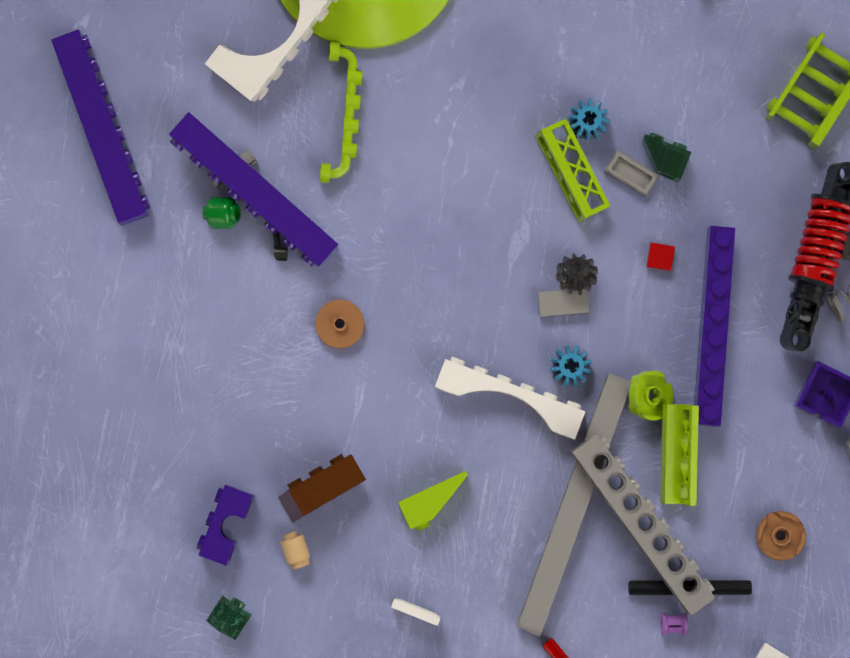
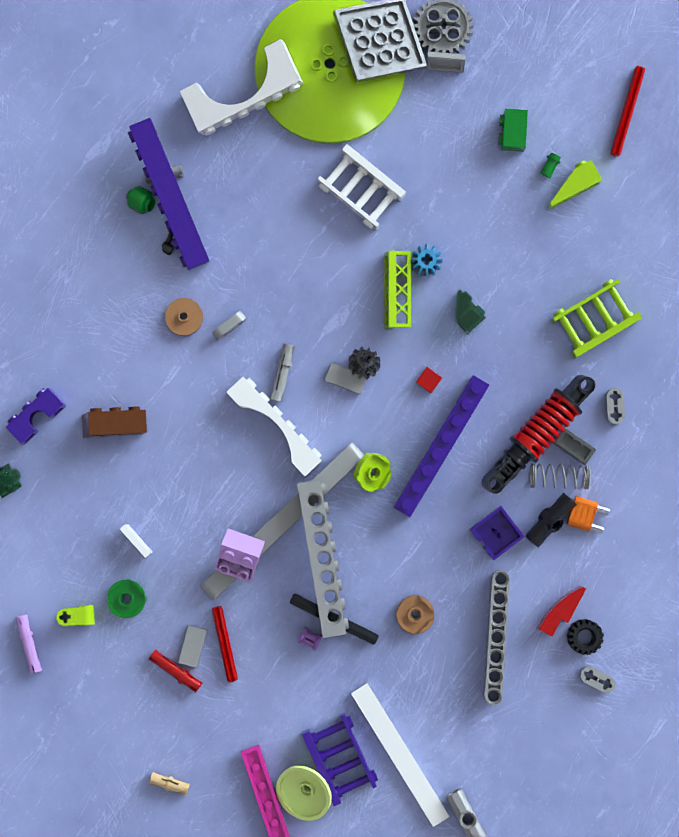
camera: 25 degrees right, 0 degrees up
(100, 128) = (87, 99): dark purple brick -> none
(295, 550) = (74, 457): tan brick -> none
(350, 125) = (260, 183): lime bar -> none
(398, 308) = (229, 325): none -> light grey beam
(426, 504) = (179, 471): lime slope -> none
(487, 54) = (364, 168): none -> white fence
(487, 331) = (282, 372): none -> light grey pin
(546, 568) = (239, 555): none -> lavender slope
(566, 372) = (334, 421): dark azure gear -> none
(631, 173) = (438, 312): light grey tile -> none
(679, 454) = (372, 522): lime fence -> none

